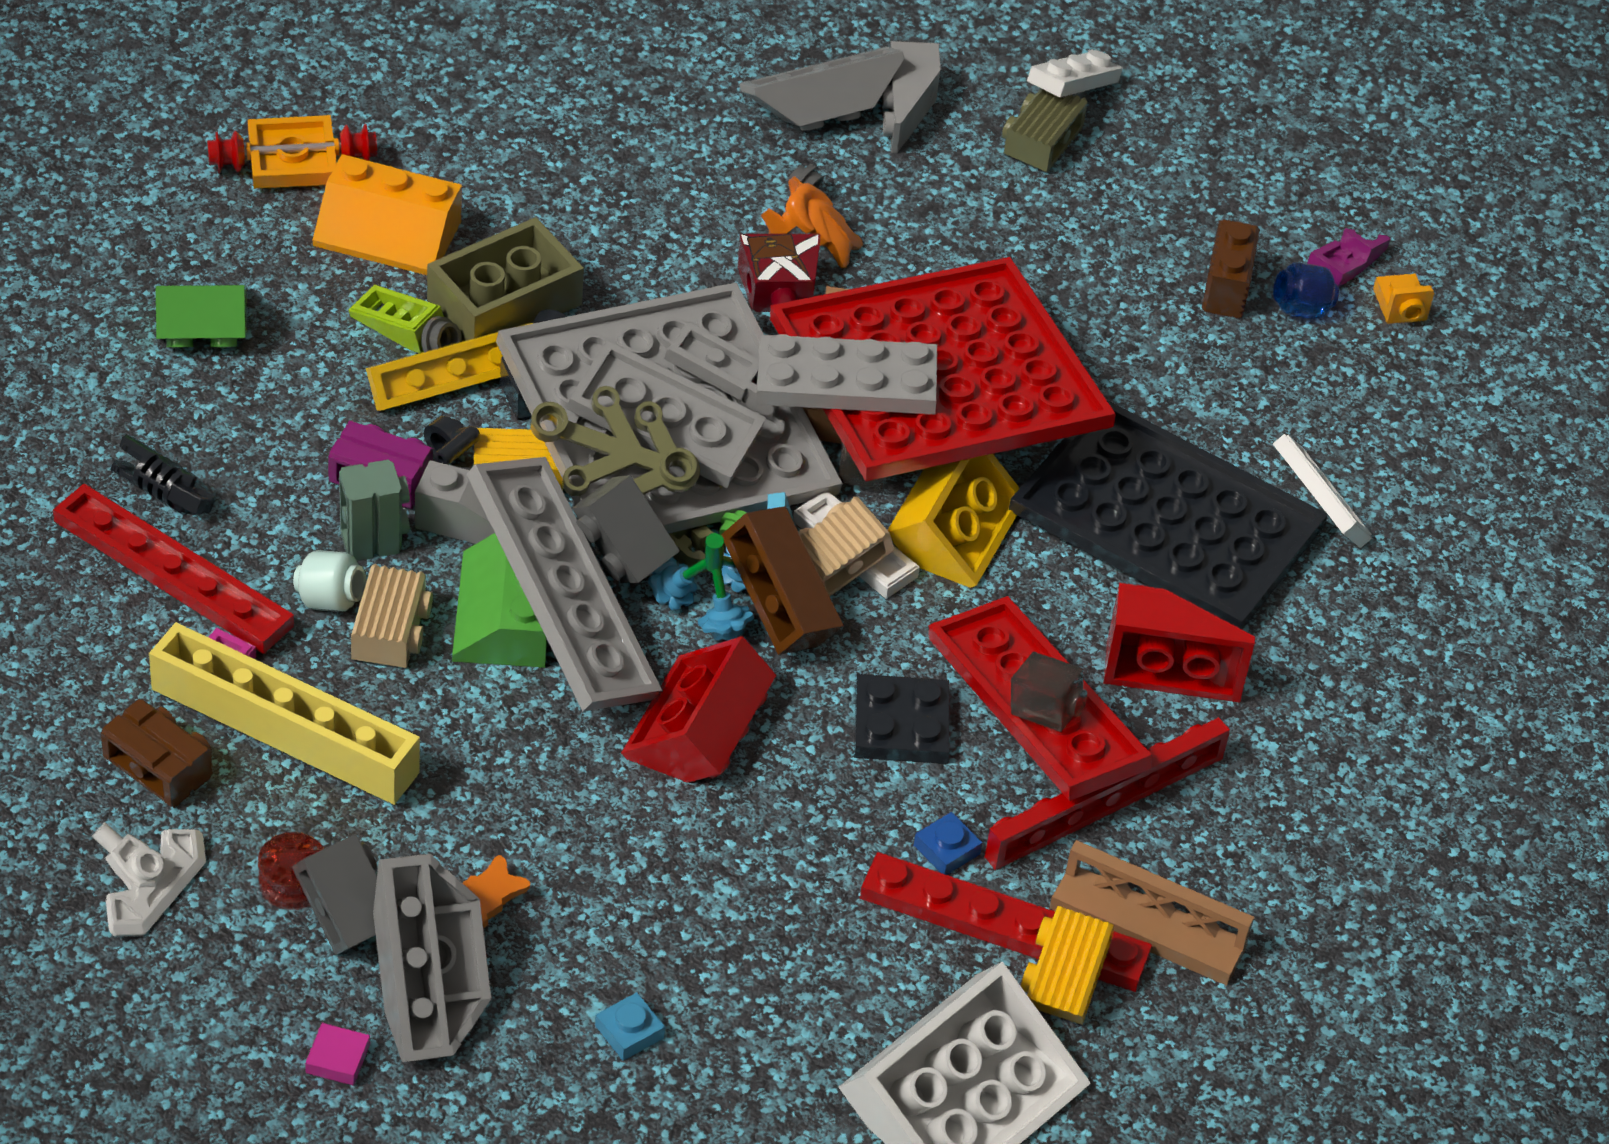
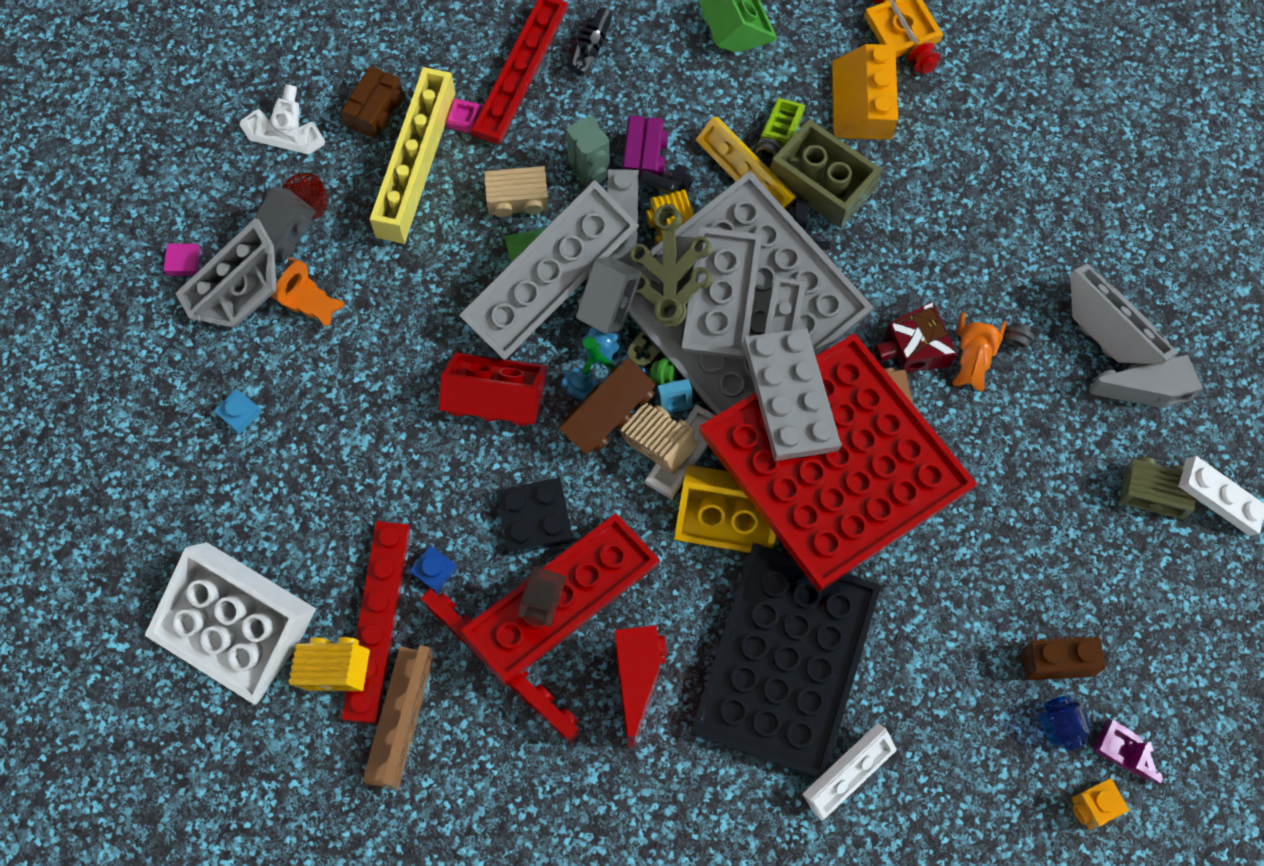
camera: 80 degrees right, 20 degrees up
(329, 581) = (534, 148): light aqua head -> none

